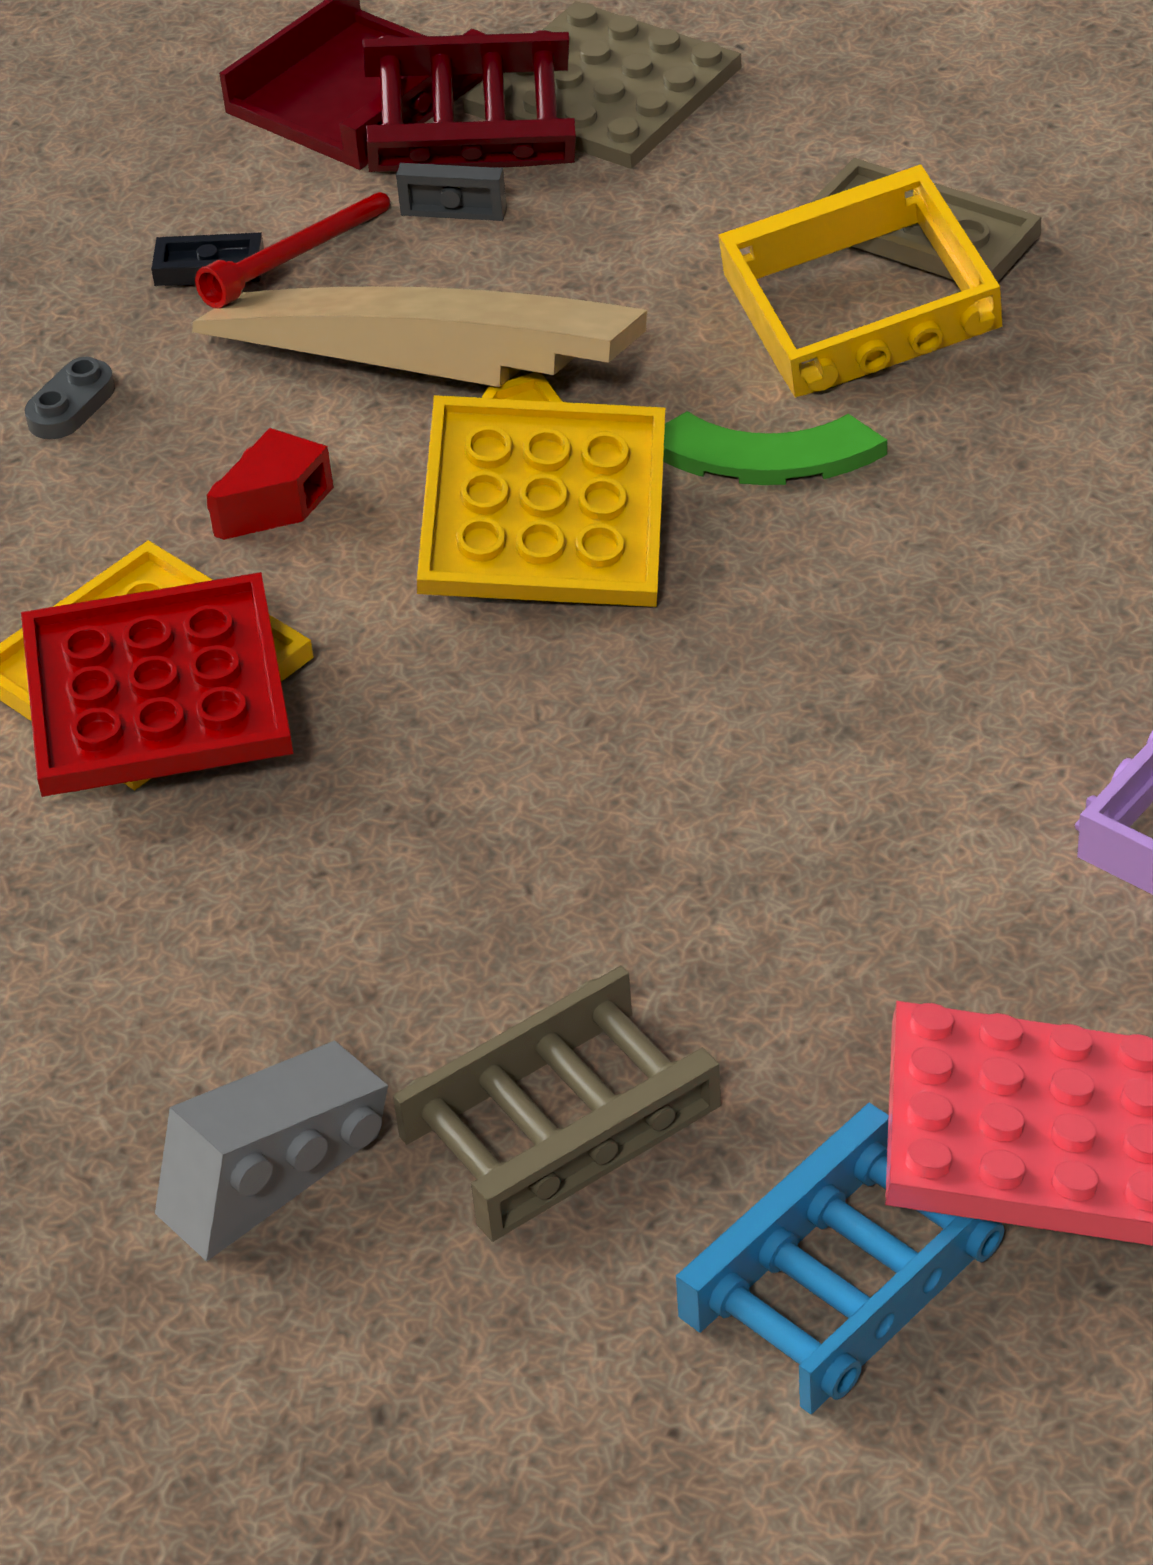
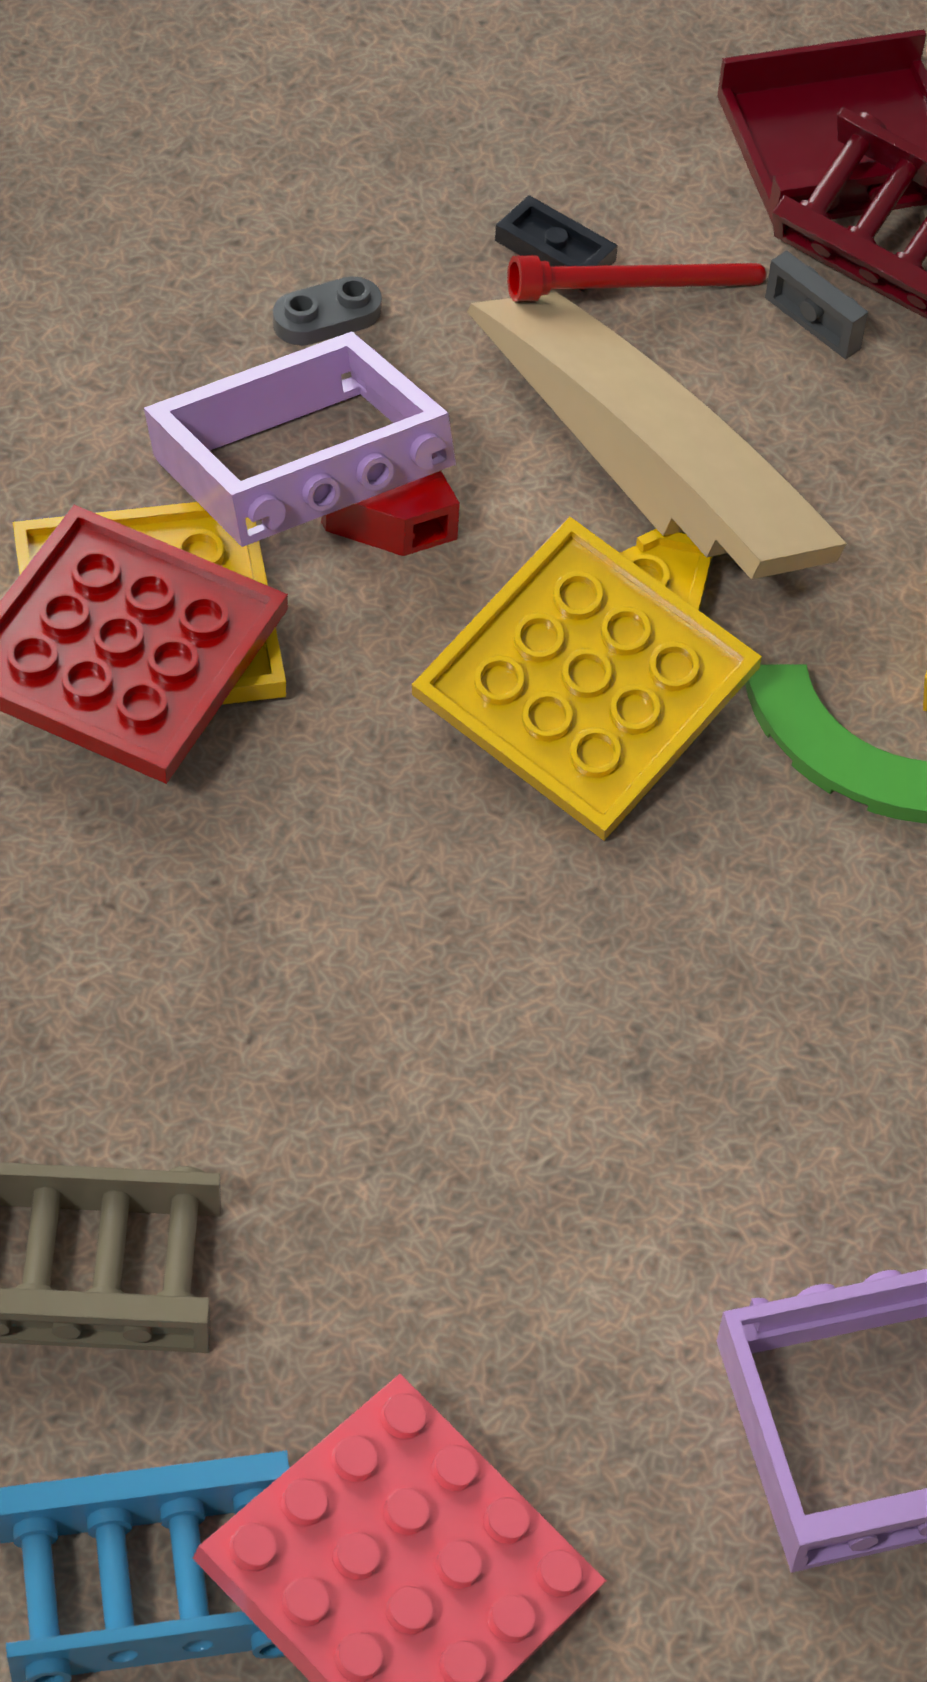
camera: 30 degrees right, 10 degrees up
(61, 519) = (283, 390): none -> lavender window

